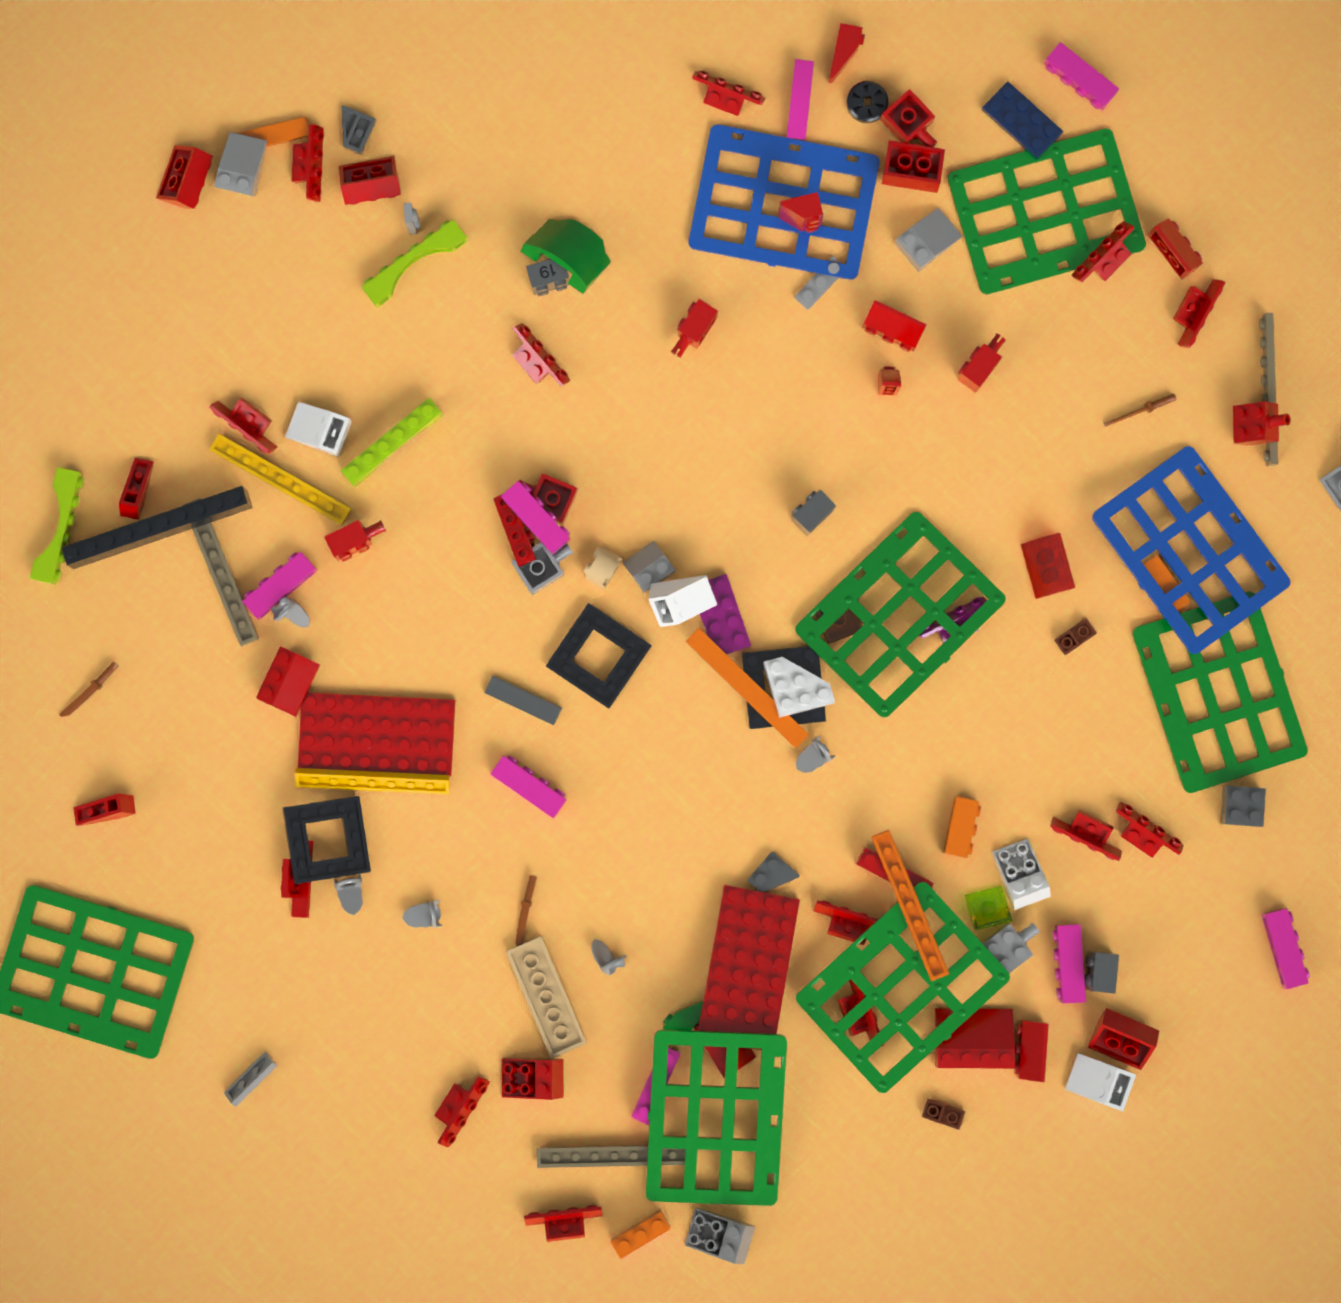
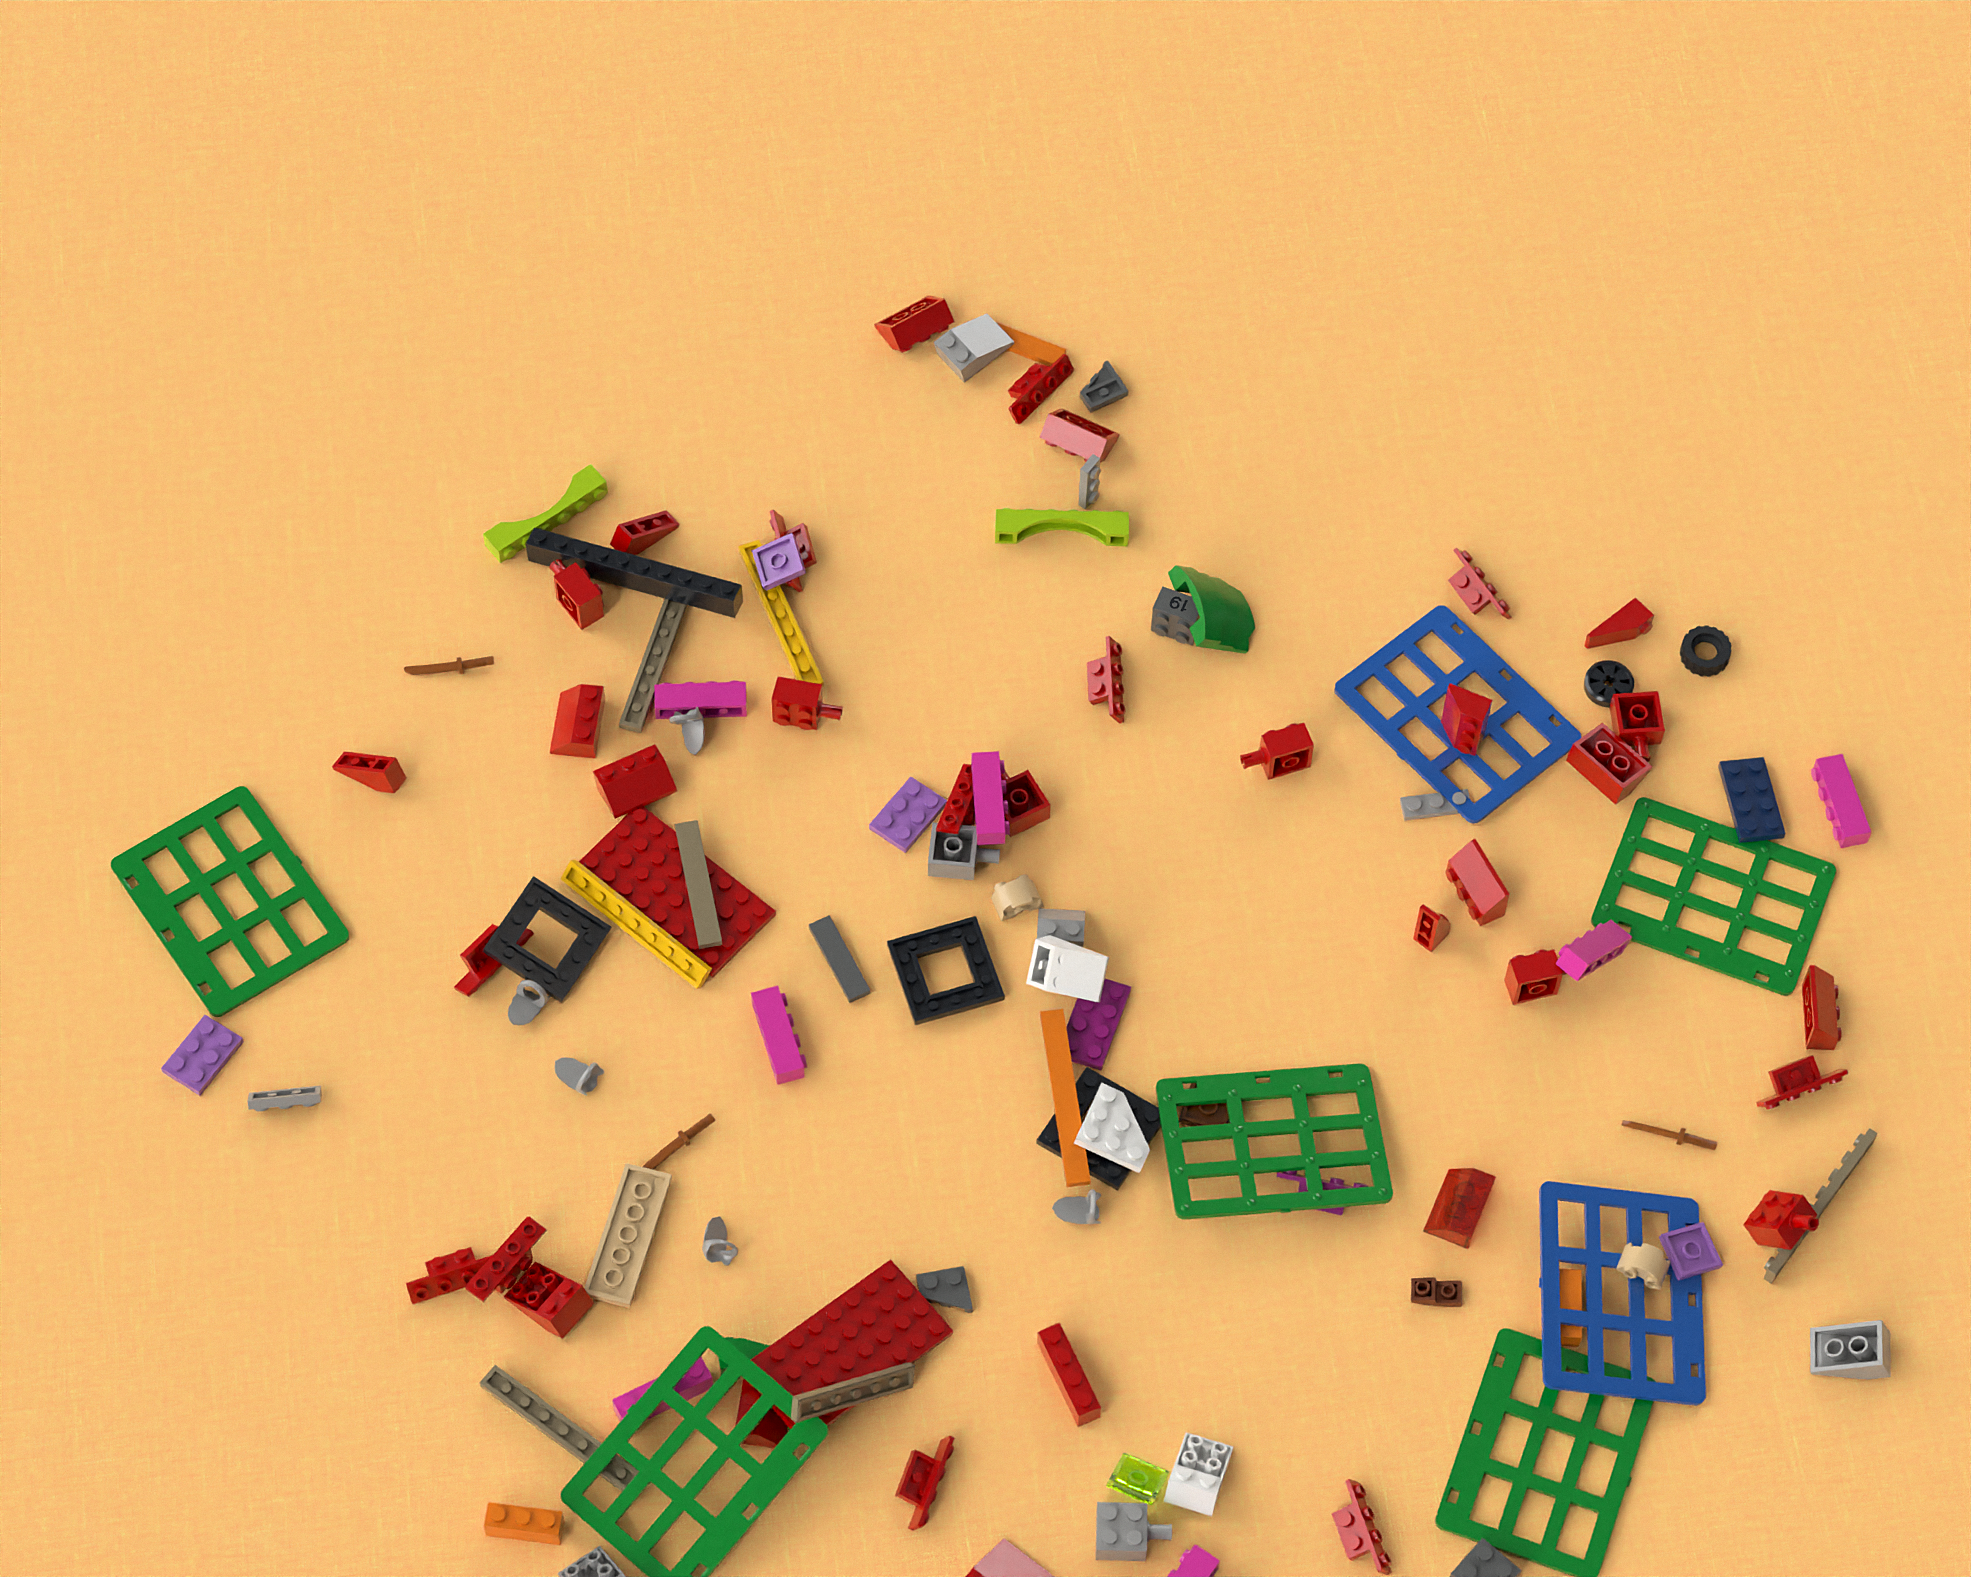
camera: 40 degrees right, 25 degrees down
(130, 573) = (577, 593): none -> red brick
(170, 1090) = (202, 1055): none -> medium lavender plate
(211, 665) = (578, 721): none -> red slope
(249, 444) = (778, 561): none -> medium lavender plate
(318, 428) = (854, 599): white slope -> none
(390, 442) = (868, 654): lime arch -> none
(391, 723) = (698, 884): none -> dark tan tile
(483, 560) = (908, 814): none -> medium lavender plate
(487, 1078) = (507, 1262): none -> red bracket
(564, 1224) = (460, 1455): red bracket -> none
(779, 999) = (852, 1392): none -> dark tan tile
(800, 99) = (1544, 636): dark pink slope -> none
(813, 512) = (1261, 987): dark grey brick -> none
(845, 923) = (985, 1389): red bracket -> none
(852, 960) = (959, 1418): green door -> none
(910, 905) = (1058, 1404): orange tile -> none
(921, 14) = (1709, 635): none -> black tyre
(927, 239) = (1572, 836): light grey slope -> none
(962, 827) = (1173, 1382): orange brick -> none
(1007, 321) = (1593, 950): none -> dark pink brick
(1089, 832) = (1303, 1484): red bracket -> none
(1107, 255) = (1743, 972): red bracket -> none
(1193, 521) = (1645, 1263): none -> tan cylinder
(1212, 485) = (1690, 1251): none -> medium lavender tile

